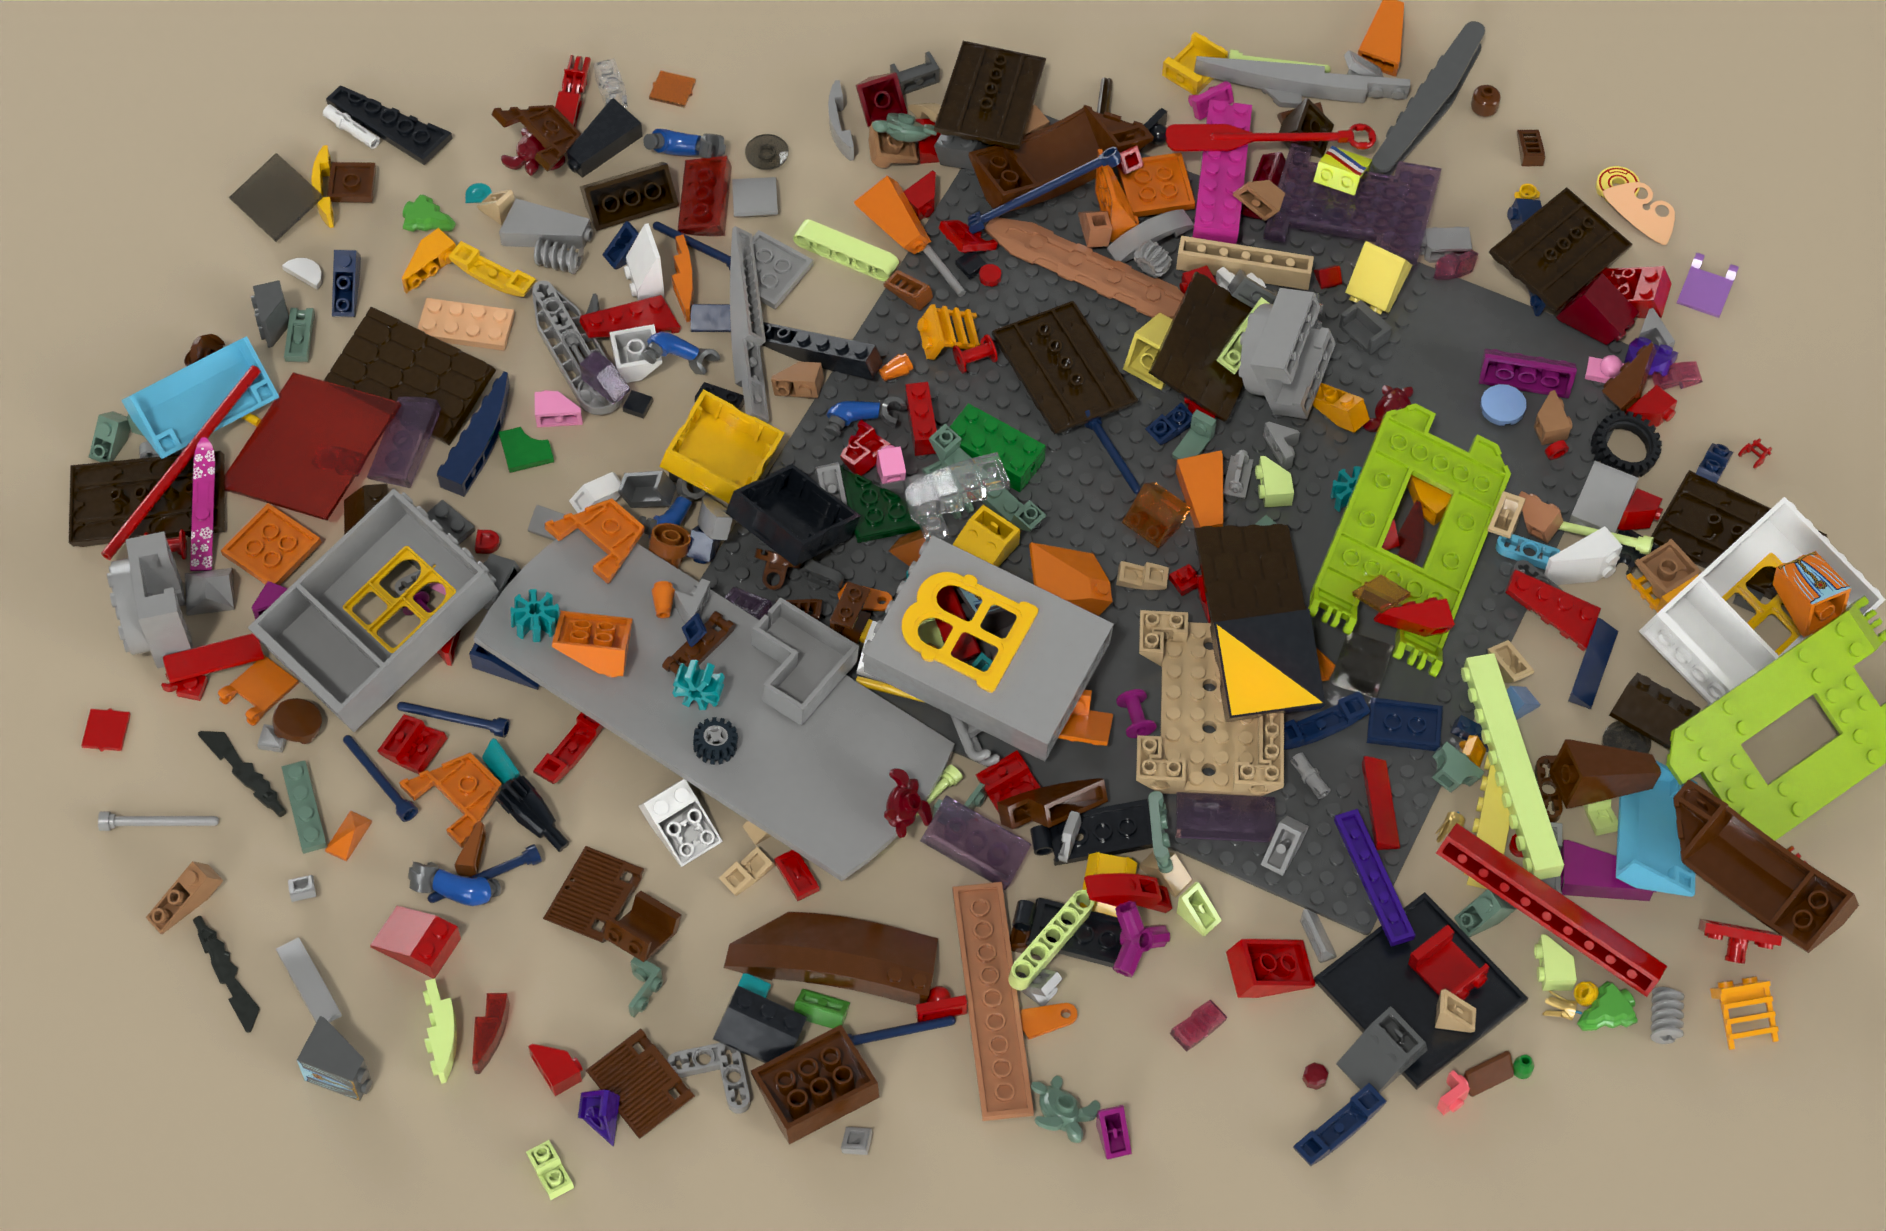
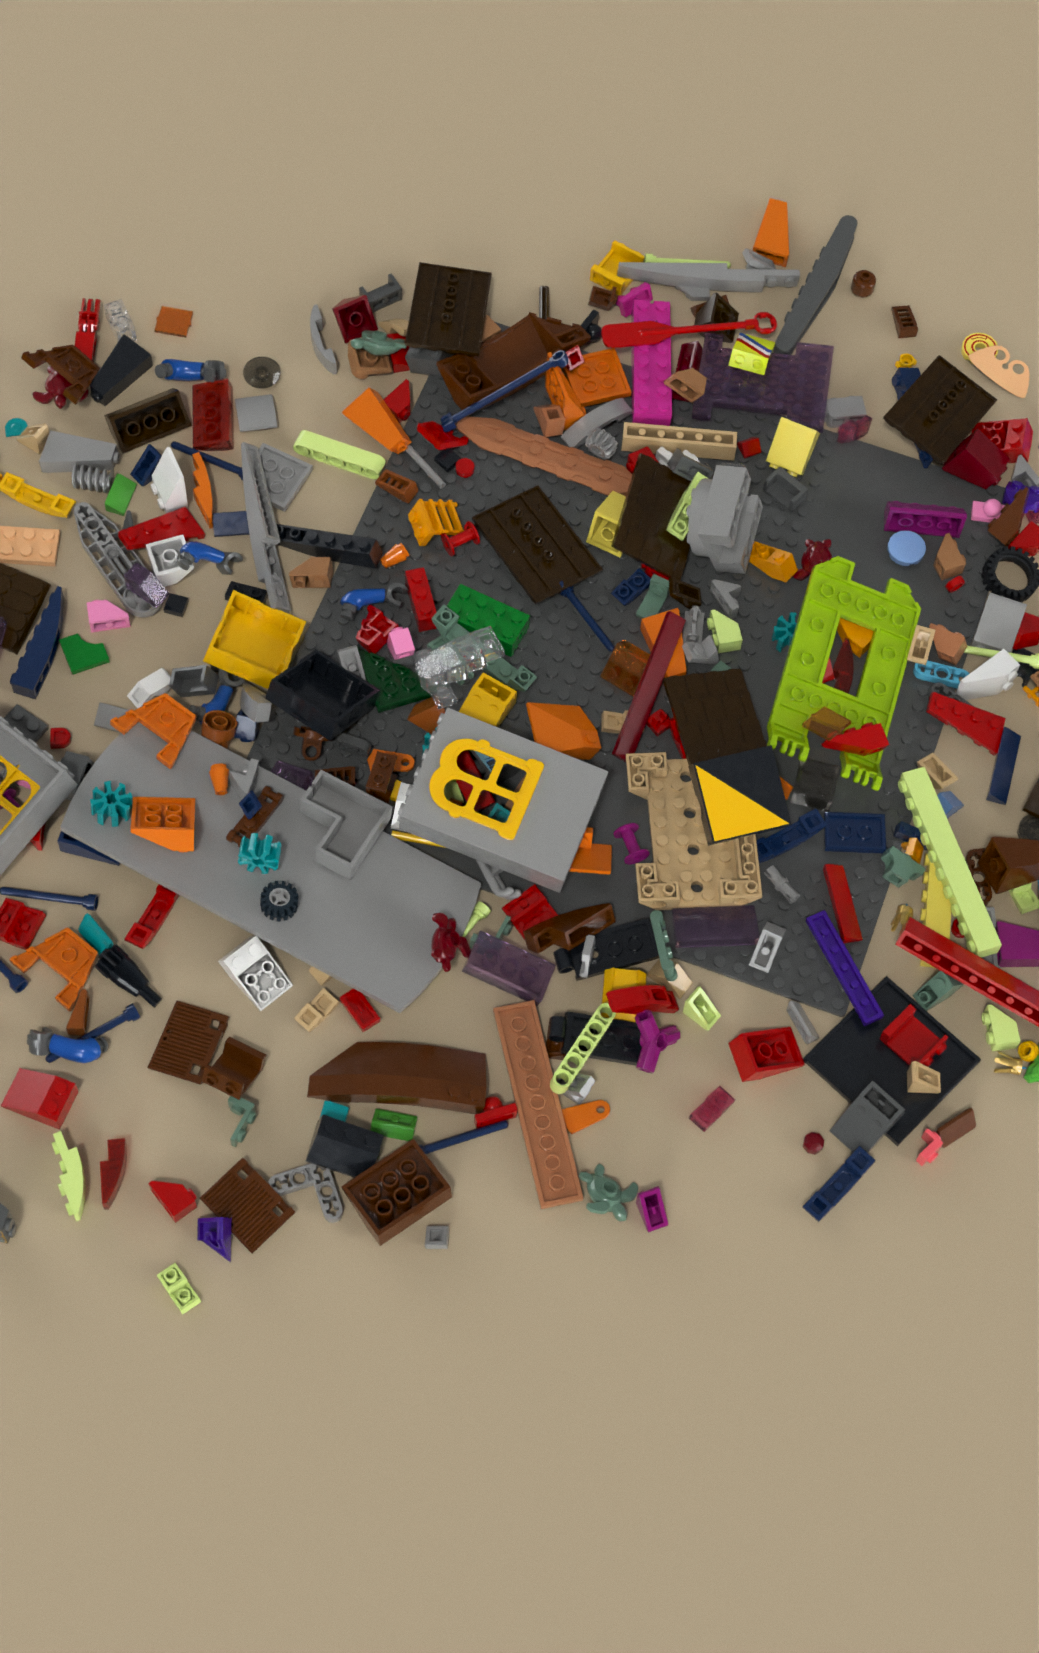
camera: 10 degrees left, 5 degrees up
(587, 276) = (120, 495): none -> bright green slope
(1174, 96) = (602, 298): none -> reddish brown bracket
(1176, 535) = (649, 686): none -> dark red tile
(1240, 436) = (684, 593): none -> dark brown slope
(1244, 503) = (701, 652): none -> light grey slope
(1523, 1070) = (981, 1121): green hose -> none

